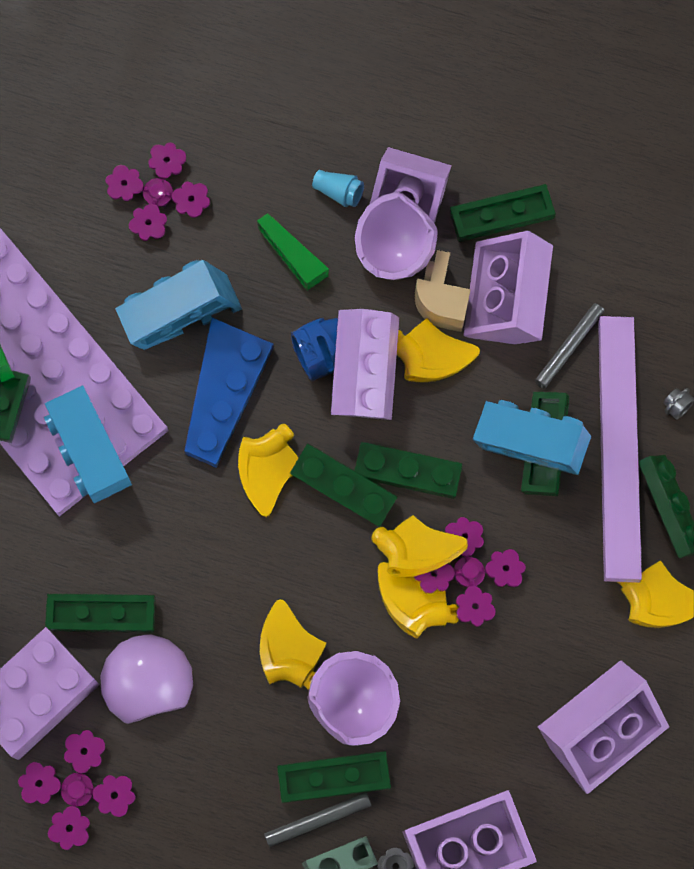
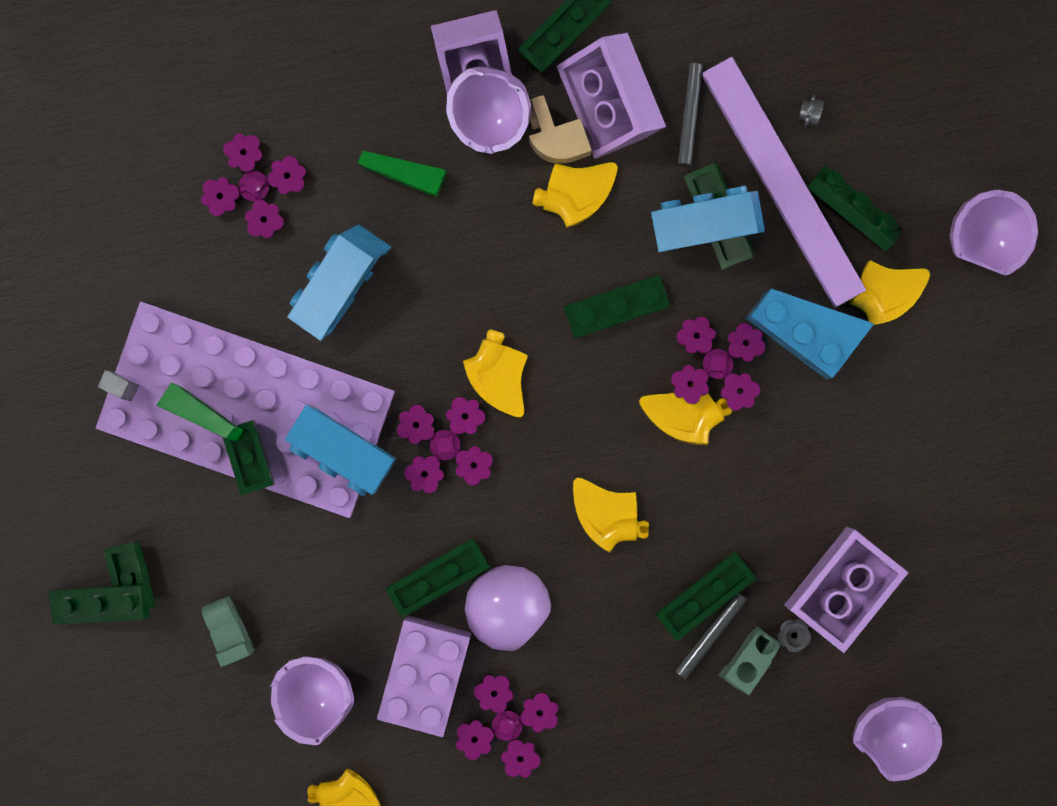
camera: 30 degrees left, 15 degrees up
(181, 500) = (444, 445): none -> magenta plant
(225, 384) = (419, 322): blue wing -> none
(316, 347) = (484, 242): blue helmet -> none
(340, 187) = (411, 87): medium azure cone -> none
(343, 484) = (571, 353): dark green plate -> none
(354, 697) = (688, 527): lavender cylinder -> none
(365, 364) = (531, 243): lavender slope -> none
(417, 548) = (664, 370): yellow arm -> none
(569, 587) = (809, 331): none -> dark azure wedge
(604, 726) = (898, 426): lavender slope -> none

